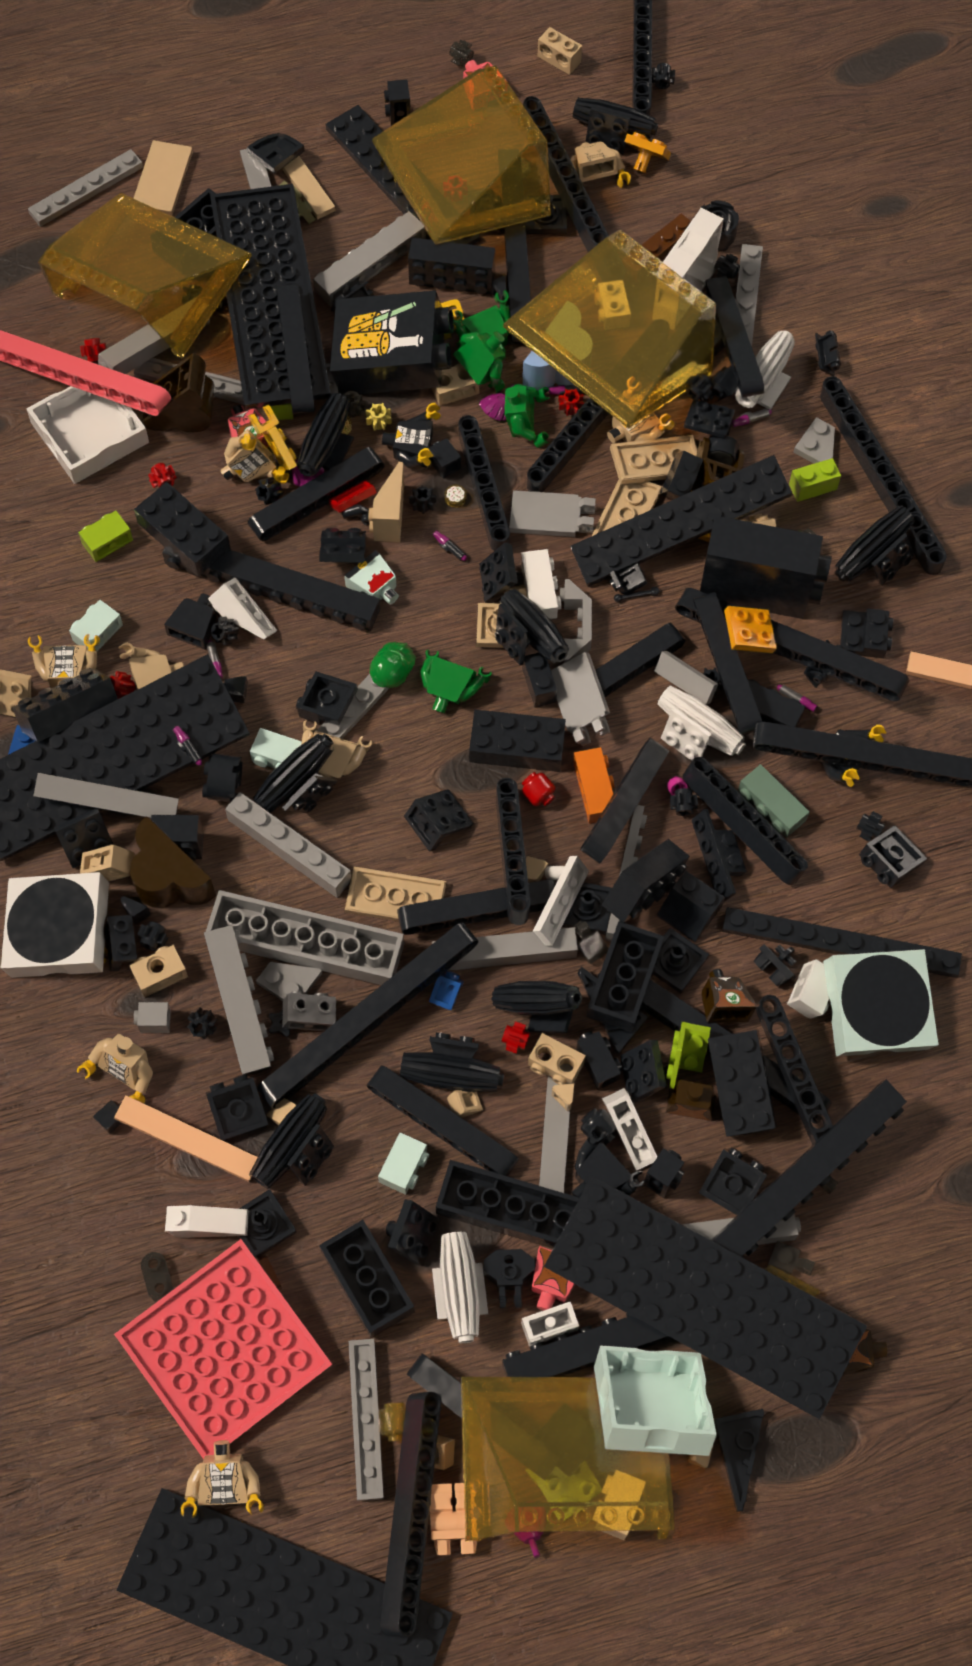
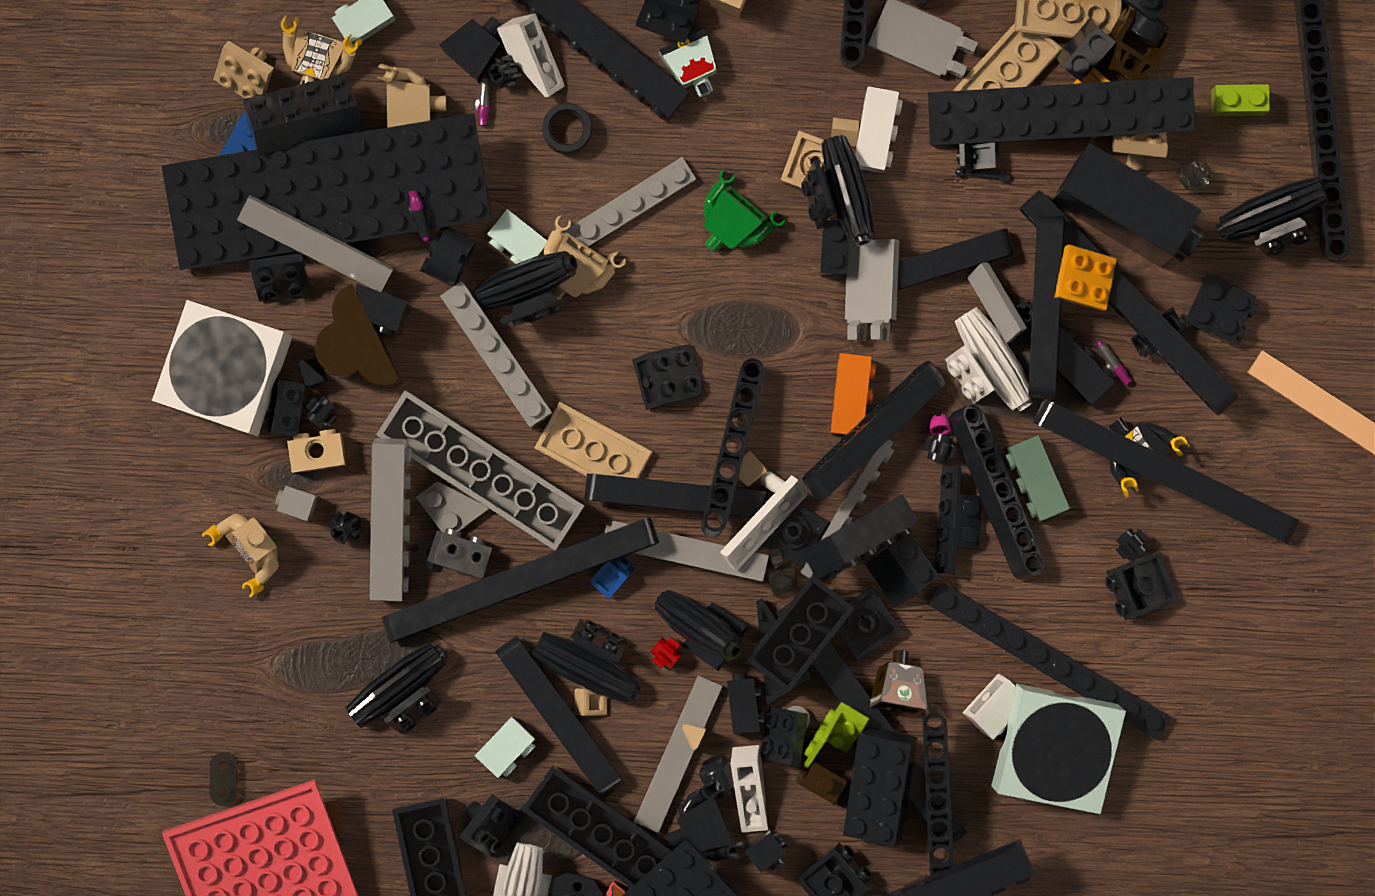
camera: 20 degrees right, 20 degrees up
(106, 1116) = (222, 594): black slope -> none
(110, 861) = (295, 317): tan brick -> none
(122, 684) = (370, 102): red gear -> none
(185, 1138) = (293, 647): light nougat tile -> none
(206, 1221) = (288, 743): white slope -> none
(236, 1107) = (354, 630): black plate -> none
(237, 688) = (495, 145): black slope -> none
(266, 1224) = (343, 761): black plate -> none
(280, 1111) = (399, 648): tan slope -> none
(290, 674) = (556, 111): none -> black tyre
(326, 698) = (590, 196): black plate -> none
(392, 664) = (678, 176): green hair -> none
(447, 545) = (791, 42): piece -> none
(499, 573) = (834, 104): black plate -> none
(517, 740) = (784, 314): black brick -> none
(538, 789) = (787, 380): red head -> none
(560, 1055) = (703, 689): tan brick -> none
(576, 599) = (907, 159): light grey slope -> none
(767, 957) = (973, 661): black hips -> none
(817, 442) = (1264, 50): light grey wing -> none

